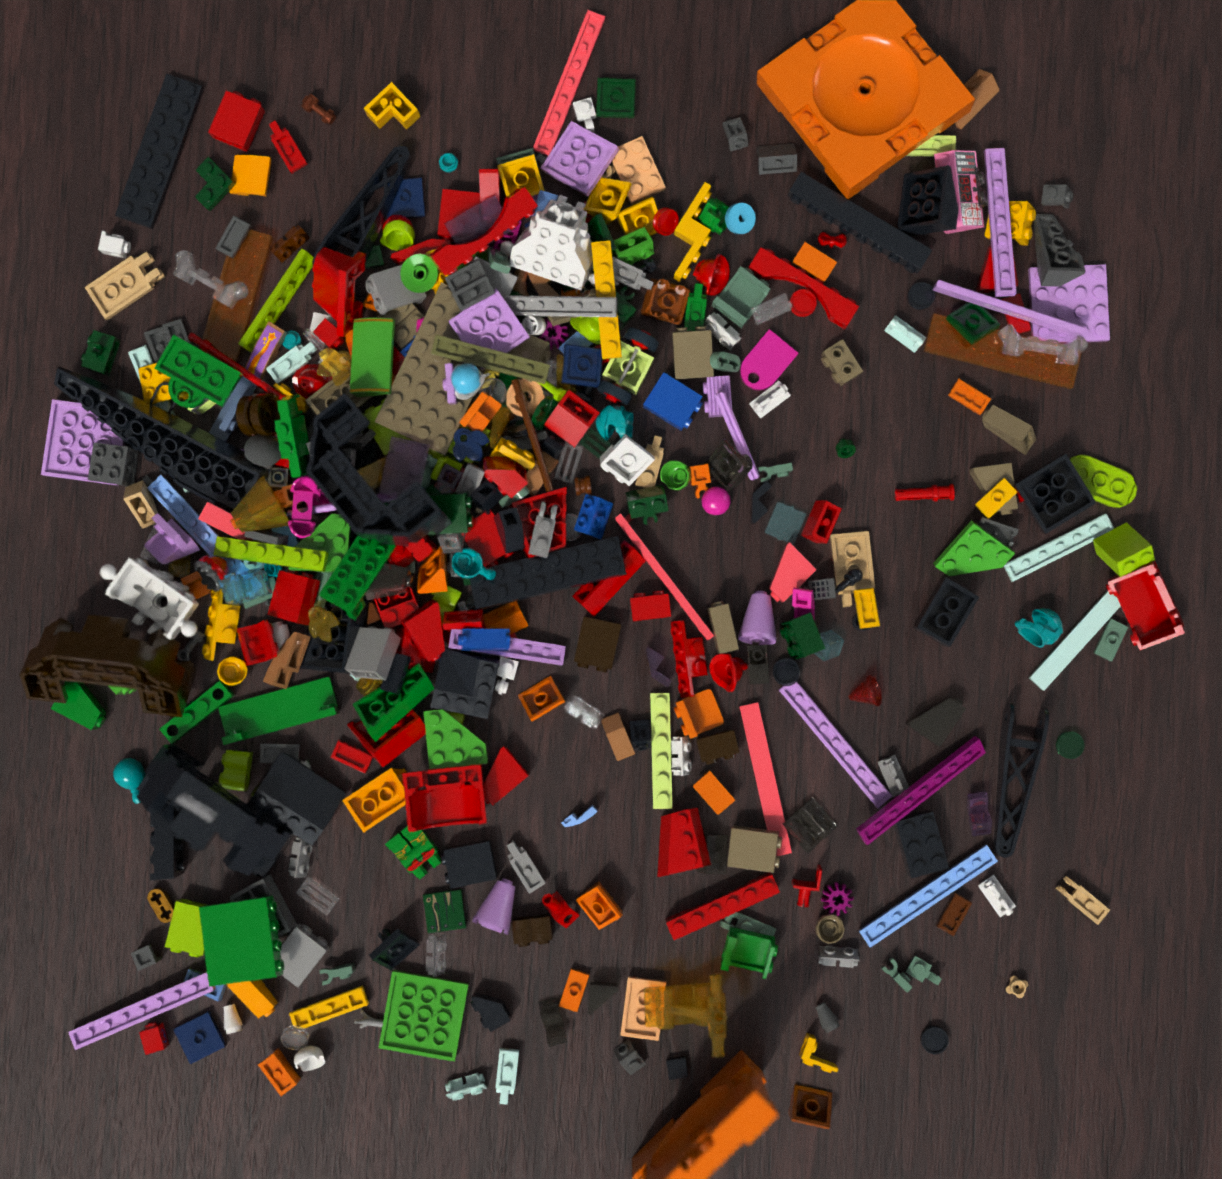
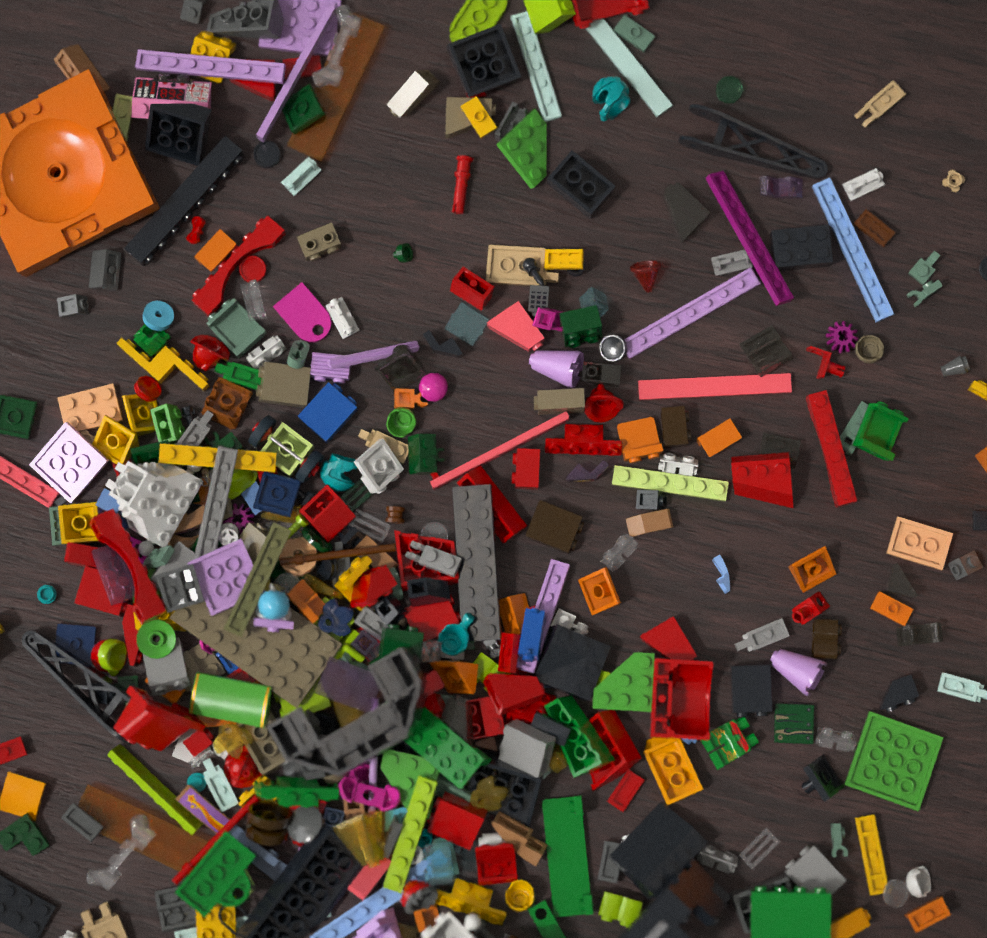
camera: 80 degrees left, 5 degrees down
(295, 238) = (94, 760): reddish brown hinge -> none
(368, 1021) = (891, 817): light grey bar -> none
(458, 1089) = (972, 738): light aqua hinge -> none
(585, 112) = (22, 449): white plate -> none
(593, 516) = (427, 509): blue bracket -> none
(689, 1004) = (922, 495): clear yellow plate -> none
(754, 849) = (780, 408): dark tan brick -> none
(779, 470) = (414, 319): sand green plate -> none
(847, 956) = (899, 337): light grey hinge -> none
(969, 396) = (374, 125): orange plate -> none

